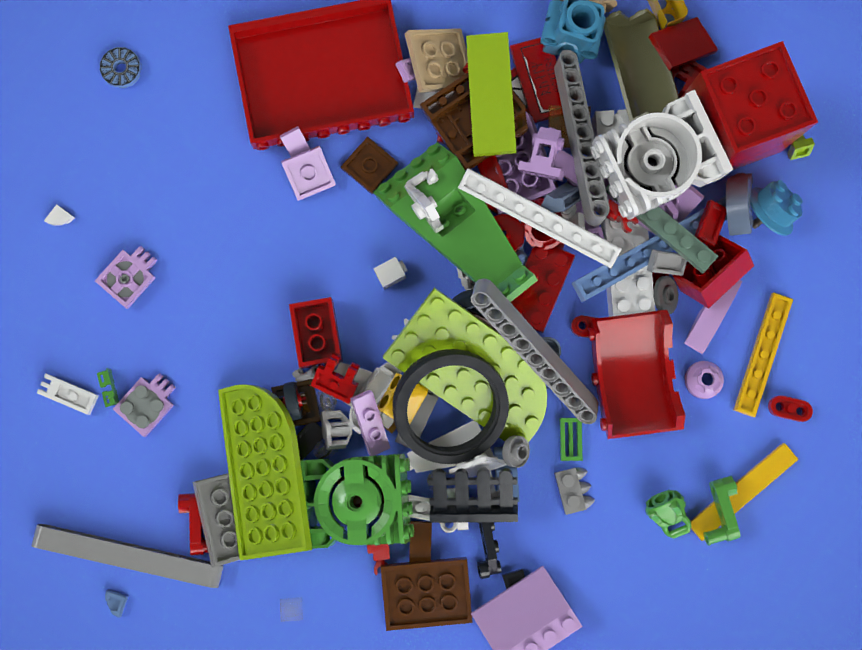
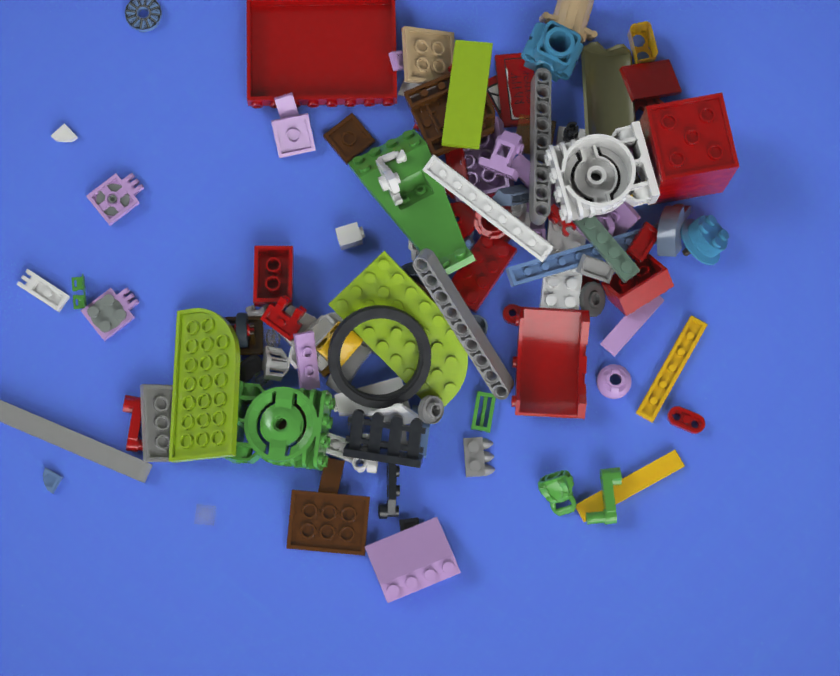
camera: 10 degrees right, 5 degrees down
(380, 554) = (294, 477): red piece -> none
(613, 117) = (570, 132): none -> black pin
(800, 148) = (739, 190): lime tile -> none

